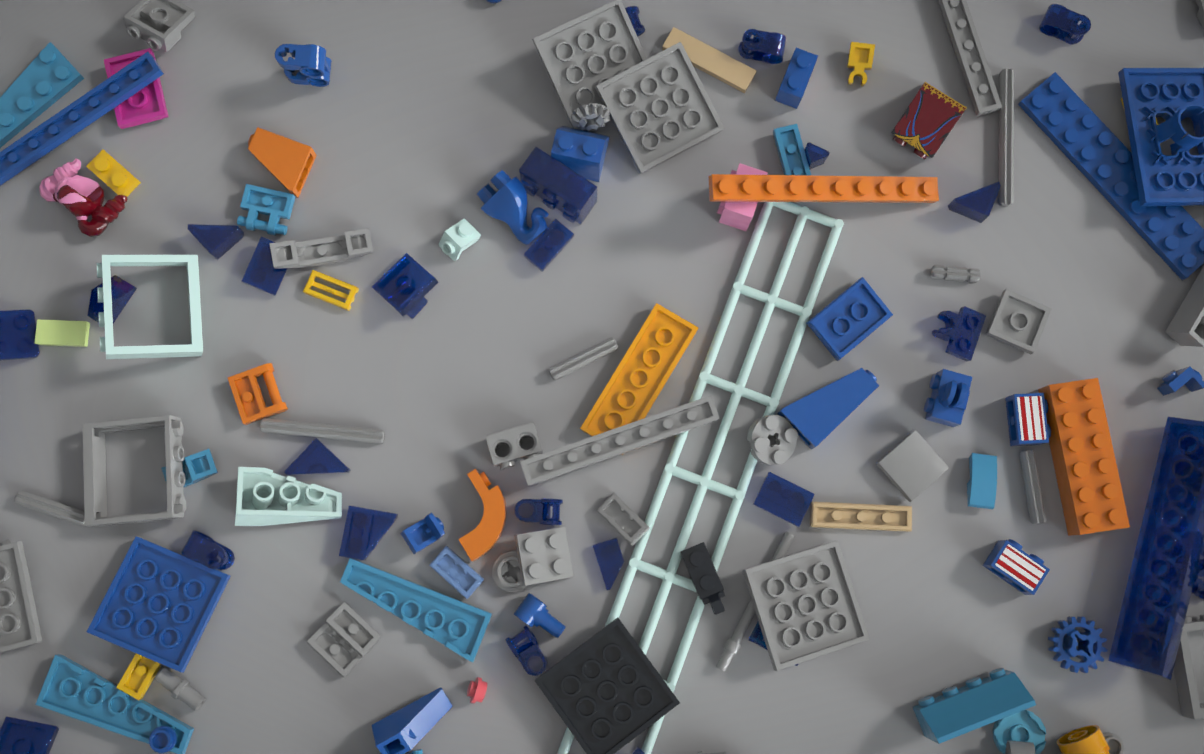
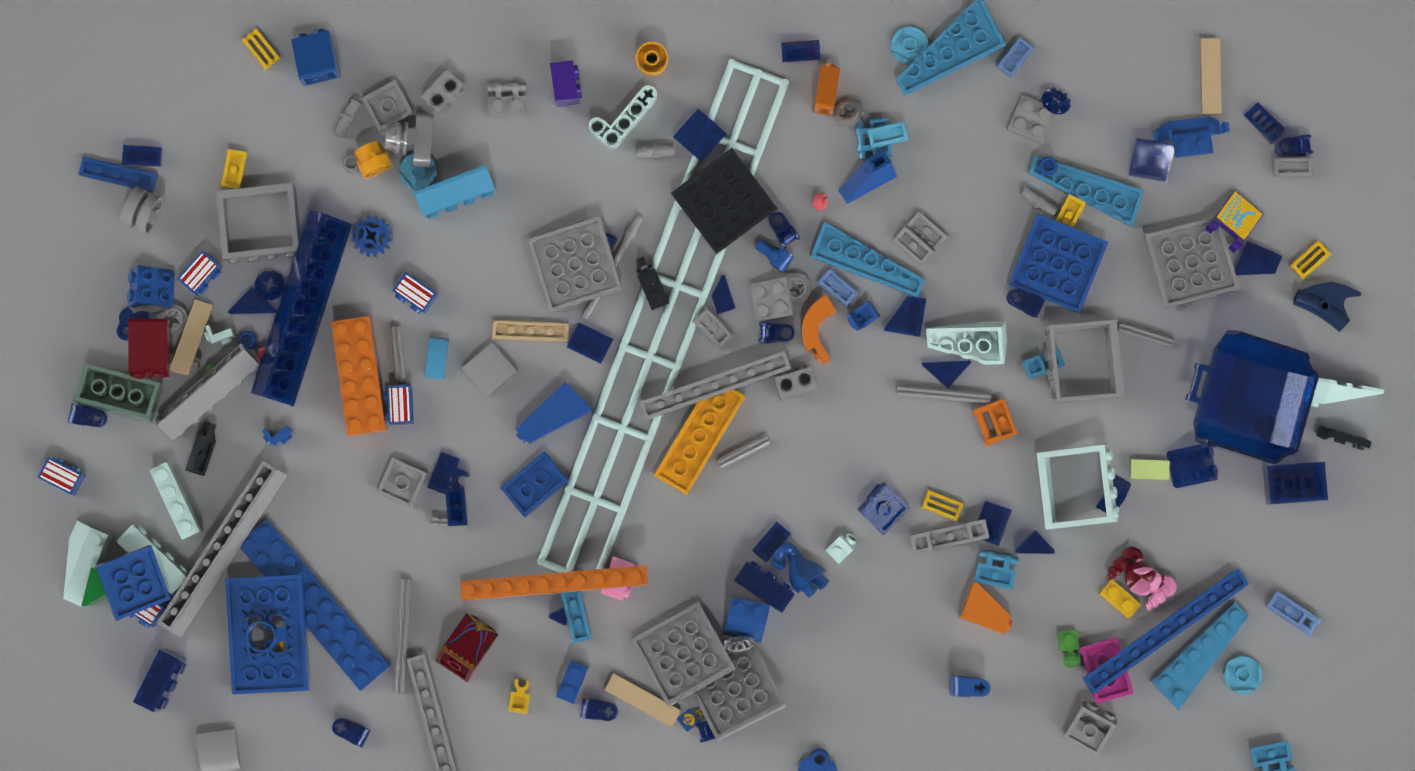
camera: 175 degrees left, 5 degrees up
(181, 122) = (1068, 642): none -> bright green plate
(651, 39) = (690, 718): none -> sticker
(759, 442) = (588, 385): light grey plate -> none
(948, 397) = (461, 421): blue brick -> none
(949, 288) = (456, 506): none -> clear blue slope
(976, 204) = (429, 578): clear blue slope -> none

